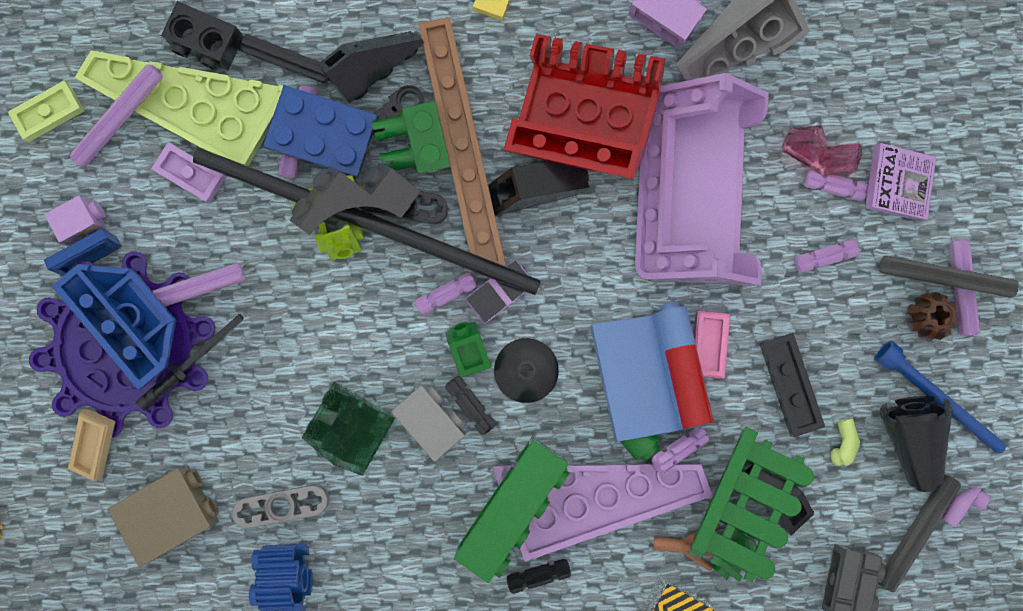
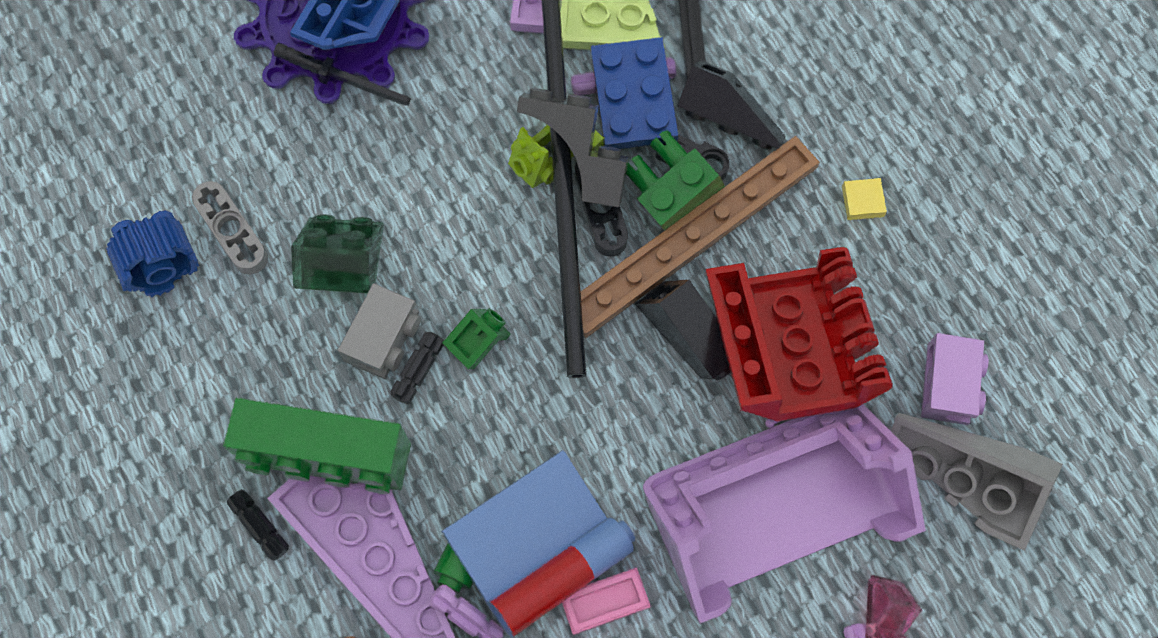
camera: 65 degrees right, 15 degrees down
(91, 445) = (220, 27): tan tile -> none
(164, 514) = (177, 120): dark tan panel -> none
(200, 284) = (423, 51): lavender axle -> none
(445, 293) = (526, 290): lavender axle -> none
(494, 296) = (545, 341): black tile -> none
(508, 370) = (488, 428): black dish -> none

